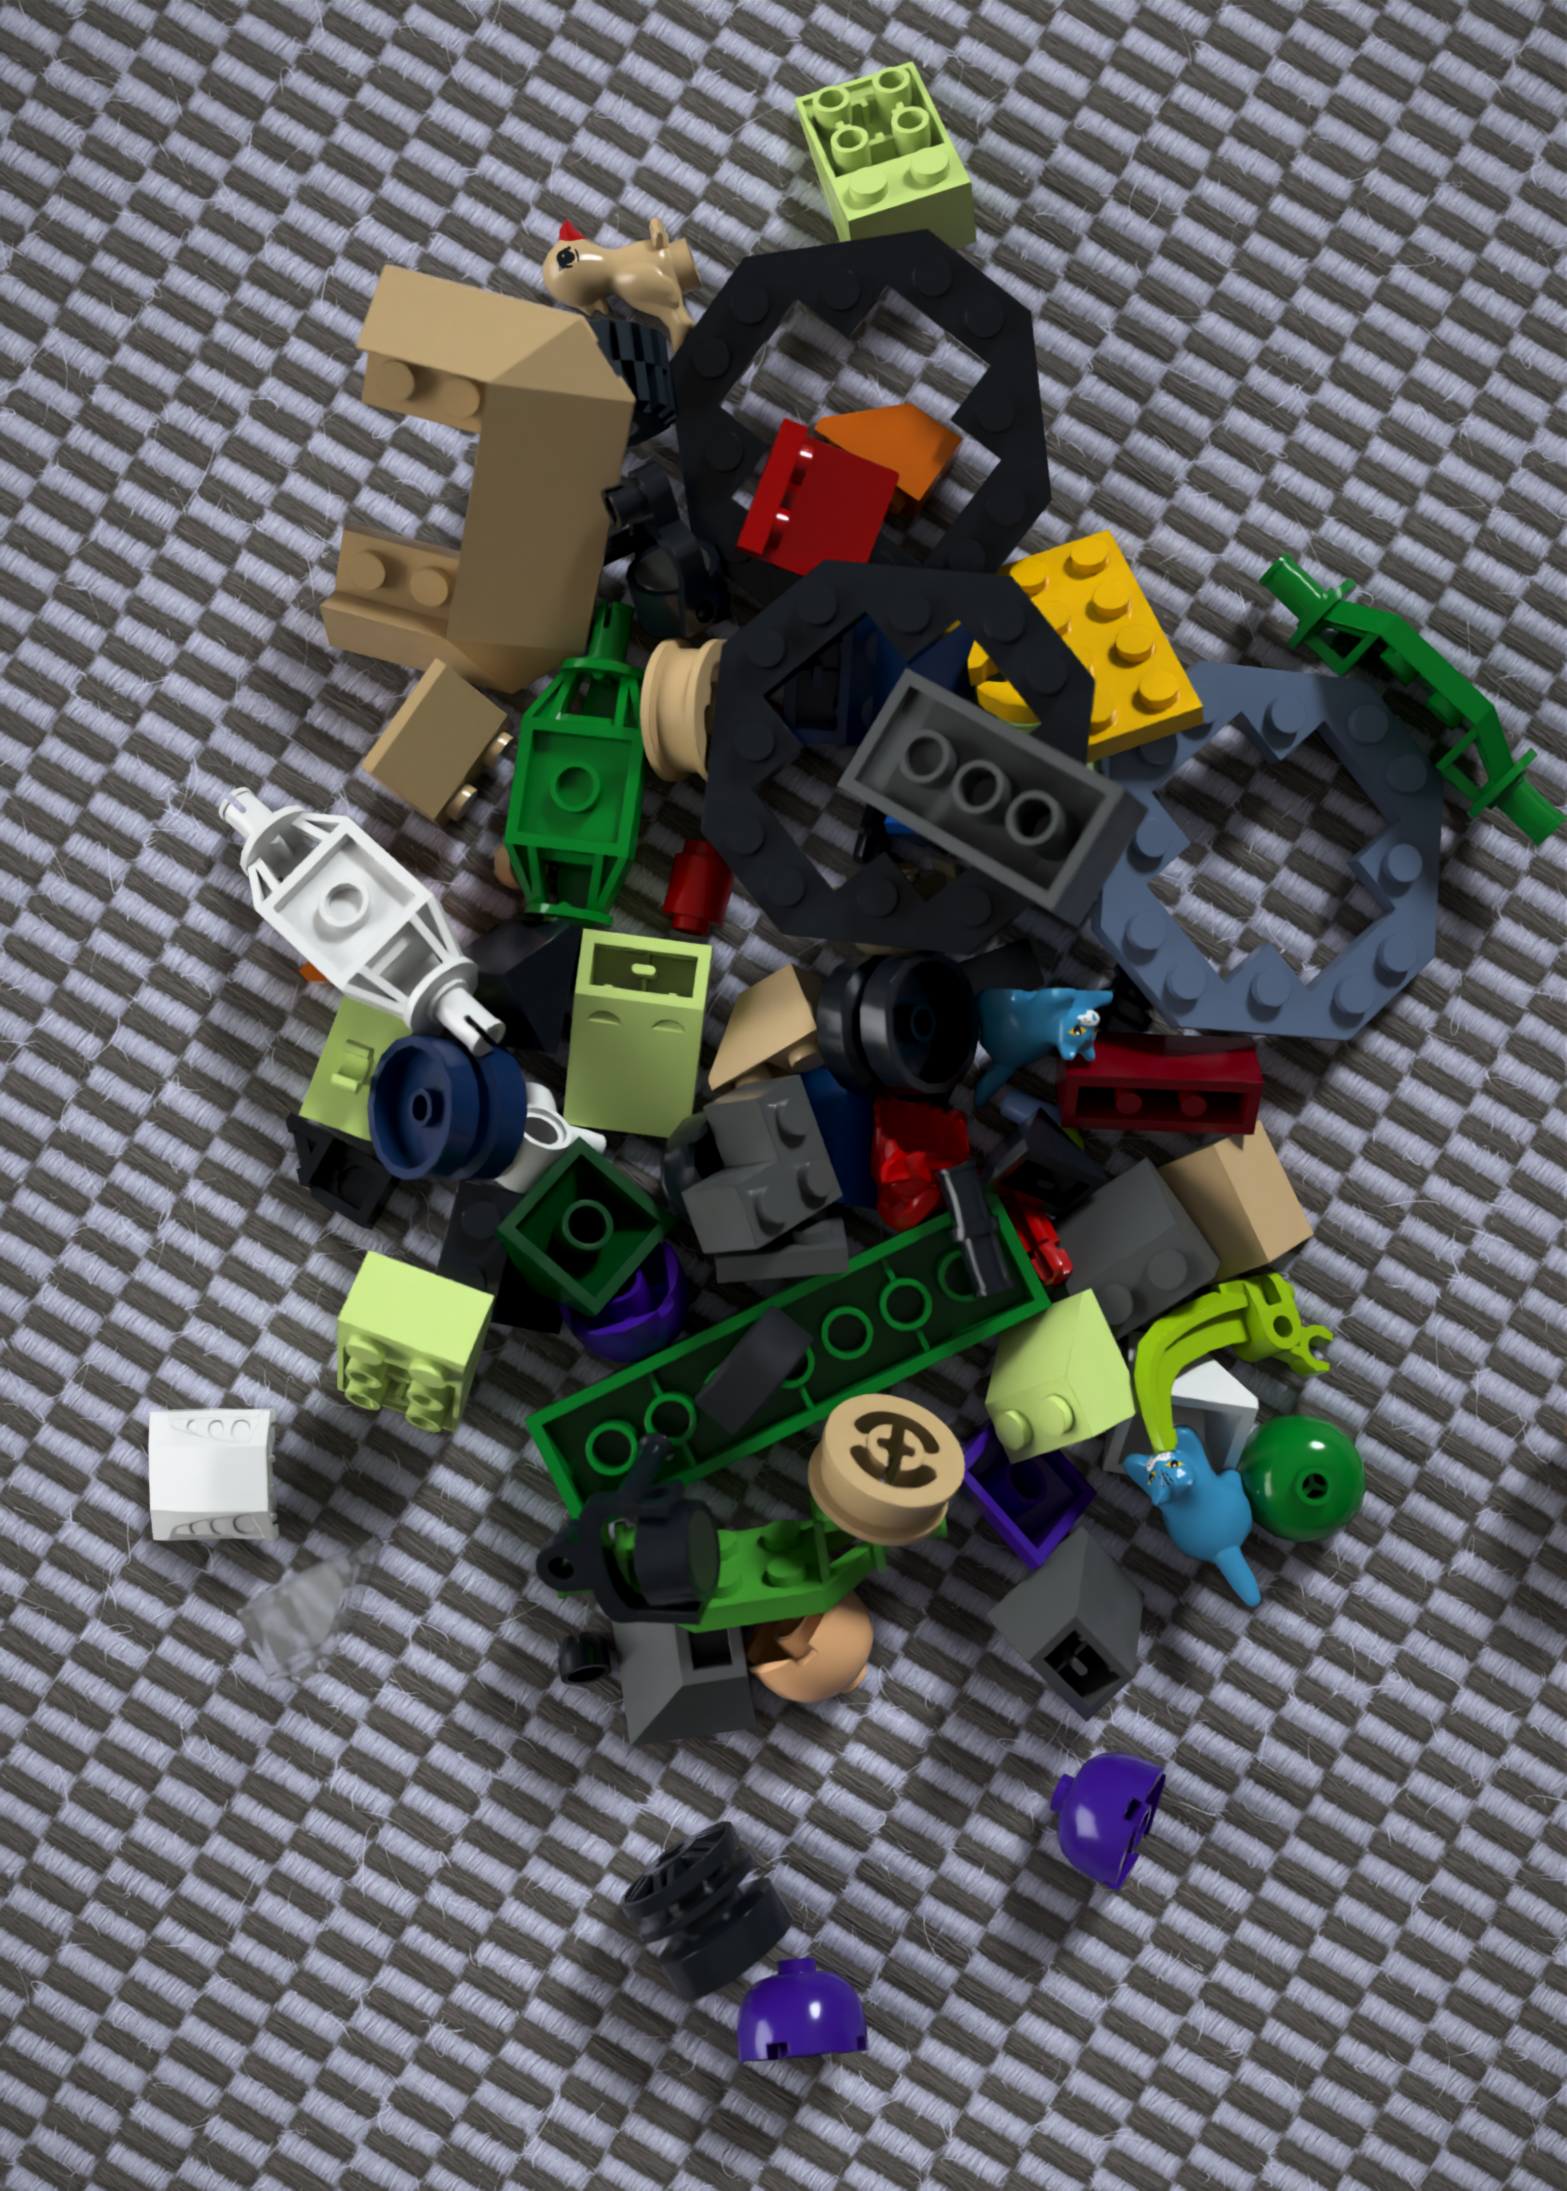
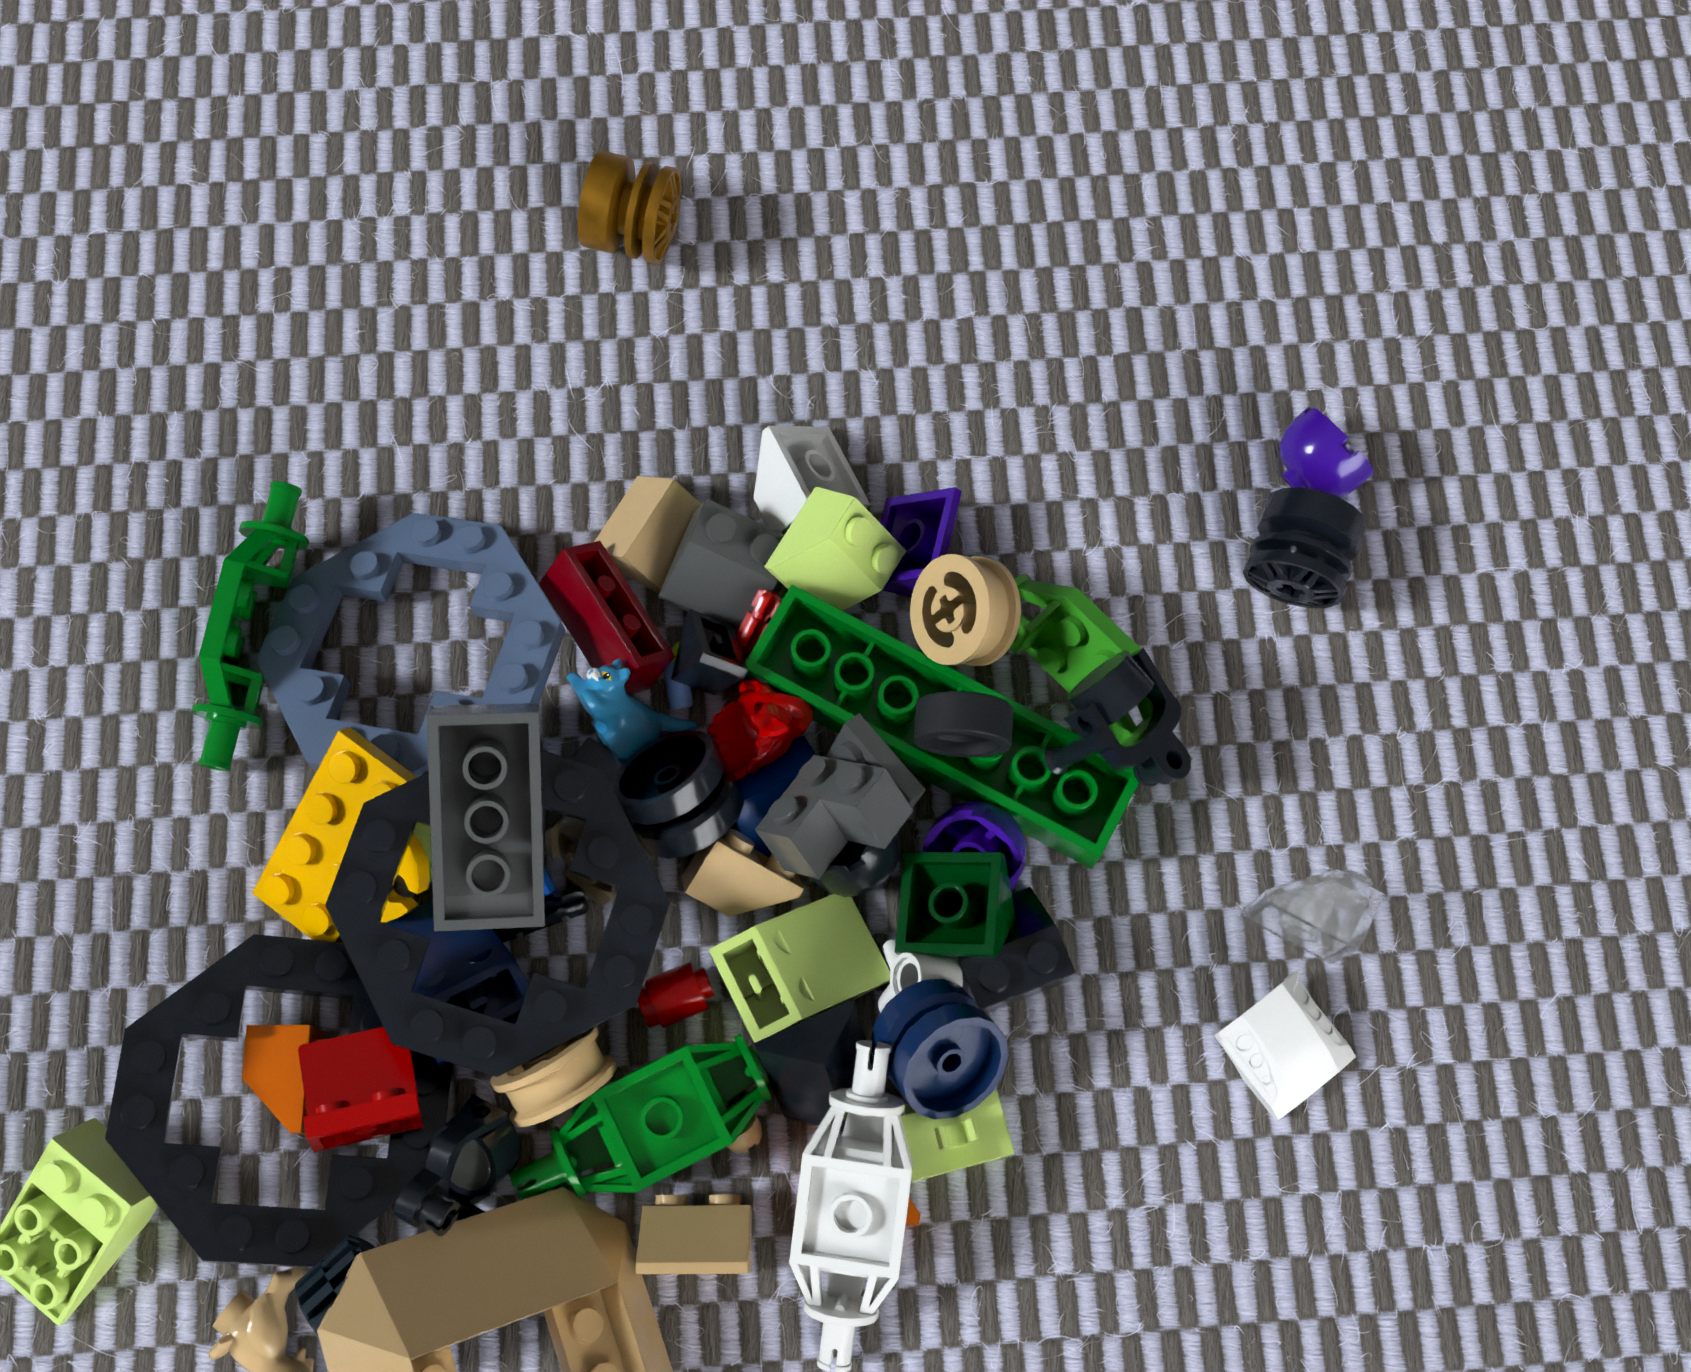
camera: 120 degrees left, 15 degrees down
(341, 1173) = (1031, 1104): black slope -> none
(410, 1342) = (1105, 963): yellowish green slope -> none
(584, 1660) = (1217, 727): black hinge -> none
(683, 1681) = (1186, 656): dark grey slope -> none
(814, 1654) = (1111, 585): light nougat cylinder -> none
(974, 1229) = (777, 657): black pin -> none
(1076, 1623) = (973, 452): dark grey slope -> none
(1107, 1814) = (1070, 366): dark purple cylinder -> none
(1129, 1002) = (563, 665): black wheel -> none
(1202, 1510) = (851, 427): dark azure animal -> none
(1249, 1314) = (717, 474): lime piece -> none
(1278, 1461) = (792, 386): green cylinder -> none

